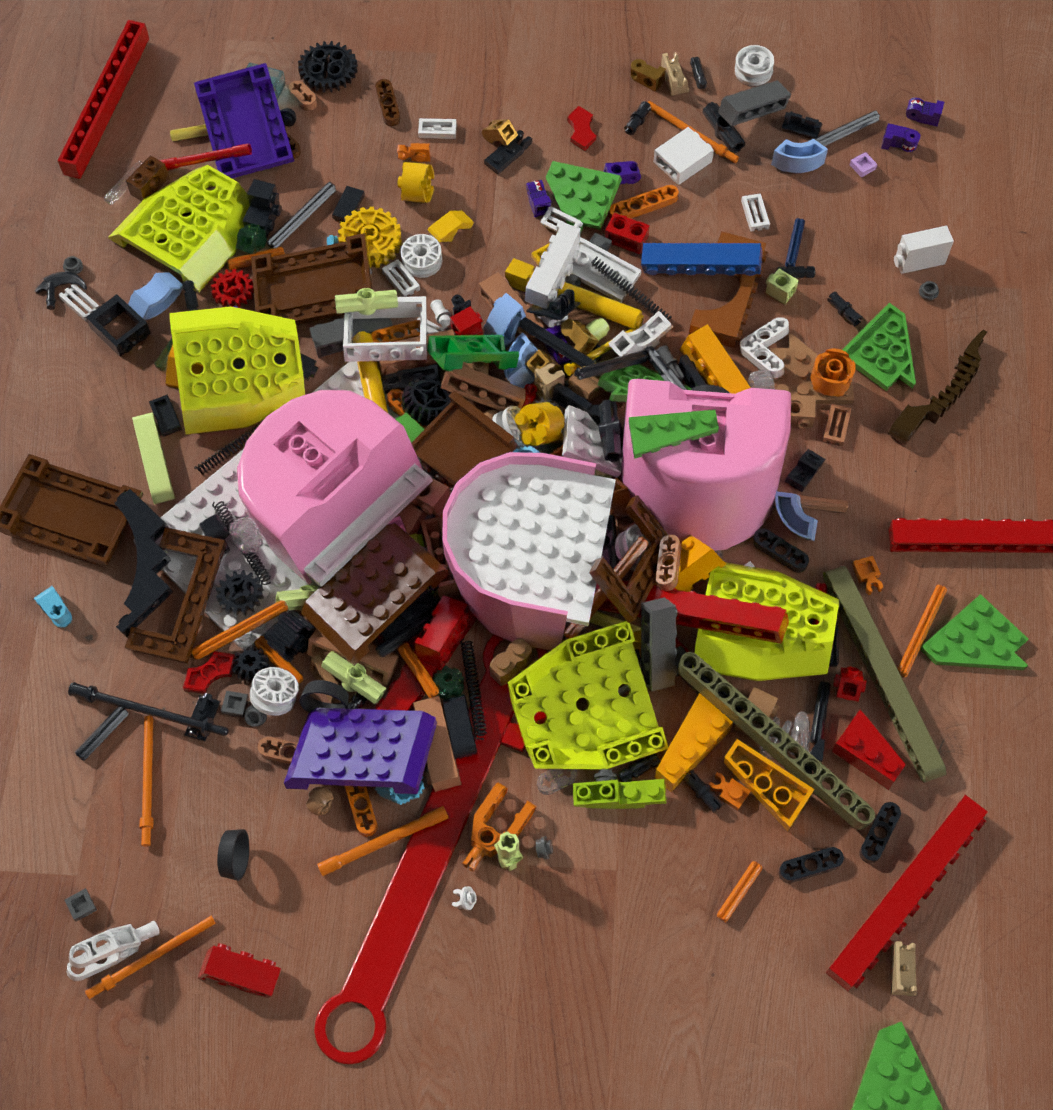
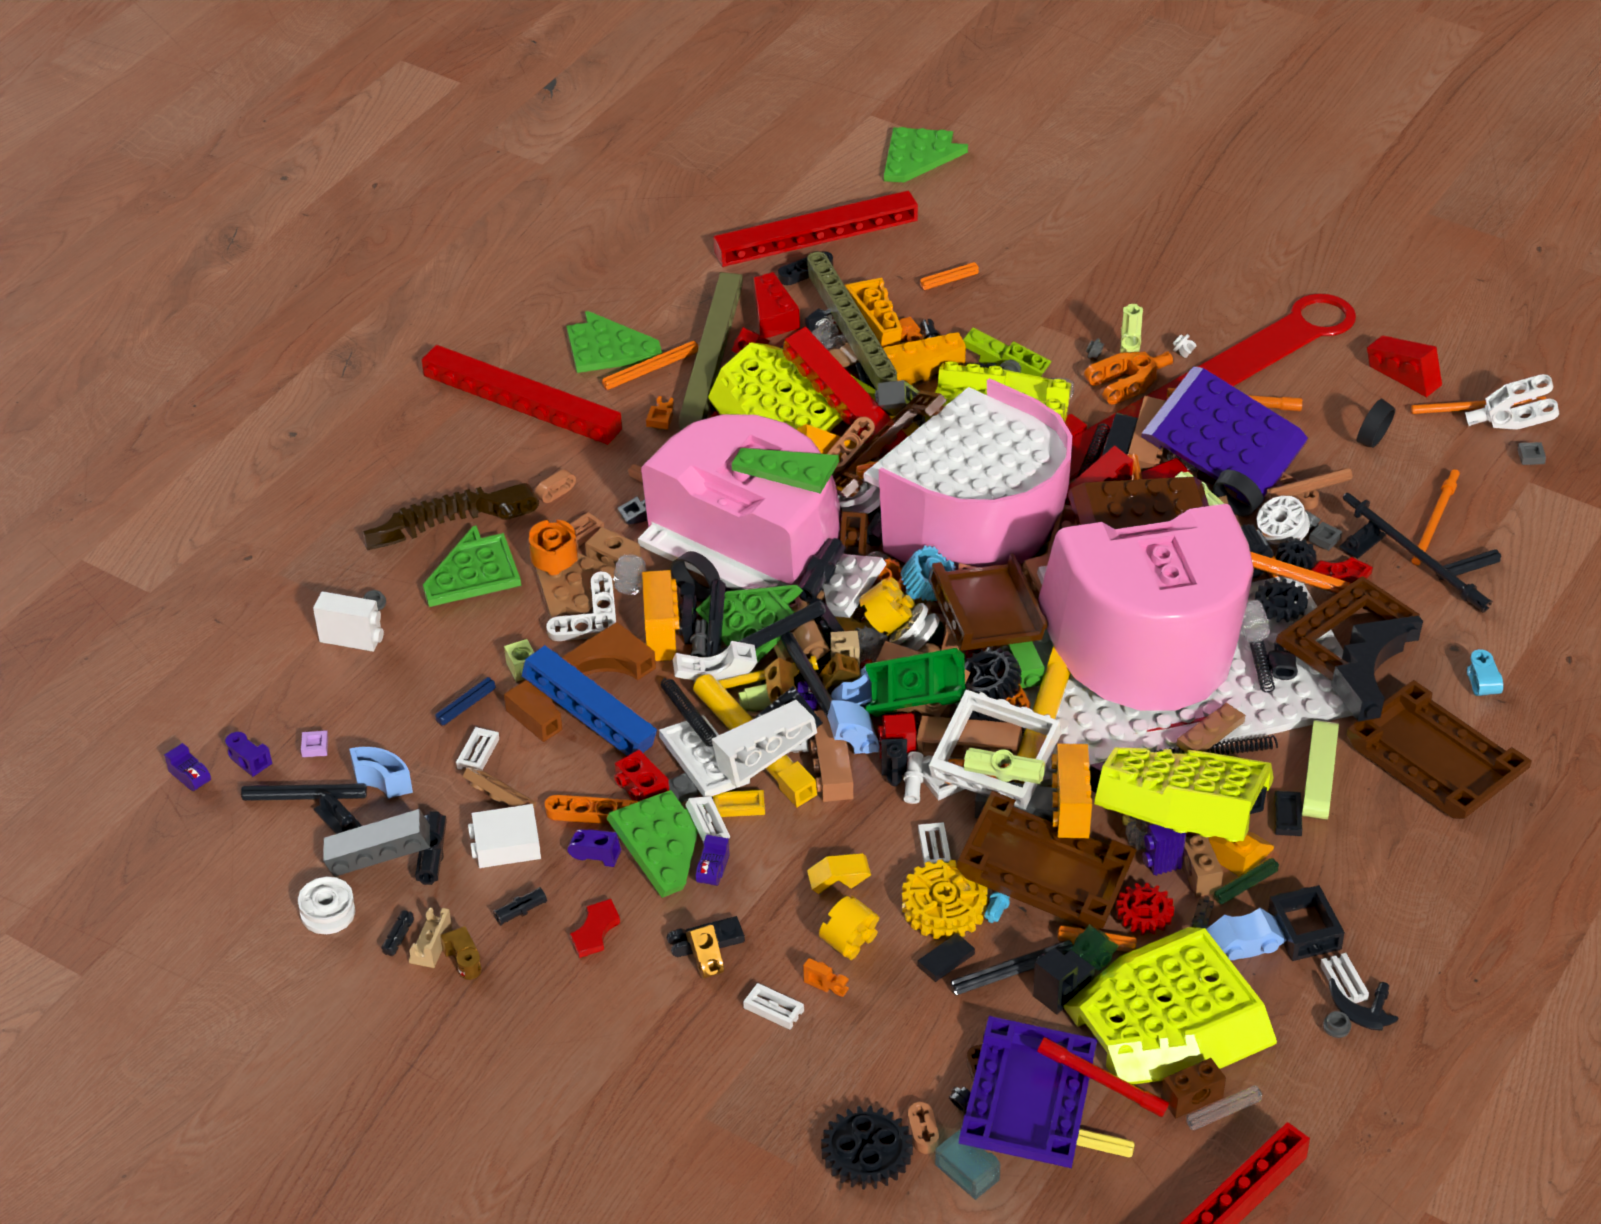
camera: 150 degrees left, 20 degrees down
(248, 427) = (1211, 729): none -> medium nougat plate
(268, 750) = (1311, 483): none -> nougat axle
(316, 326) = (1073, 791): none -> light orange wedge
(385, 109) = (818, 1078): reddish brown beam -> none
(421, 255) = (895, 852): white wheel -> none
(714, 185) = (498, 790): none -> medium nougat plate
(720, 150) = (456, 832): orange bar -> none
(793, 864) = (891, 272): black beam -> none
(799, 271) = (505, 679): black axle -> none
(845, 308) = (475, 618): black pin -> none
(888, 454) = (555, 486): none -> nougat beam
(903, 969) = (862, 192): tan hinge -> none

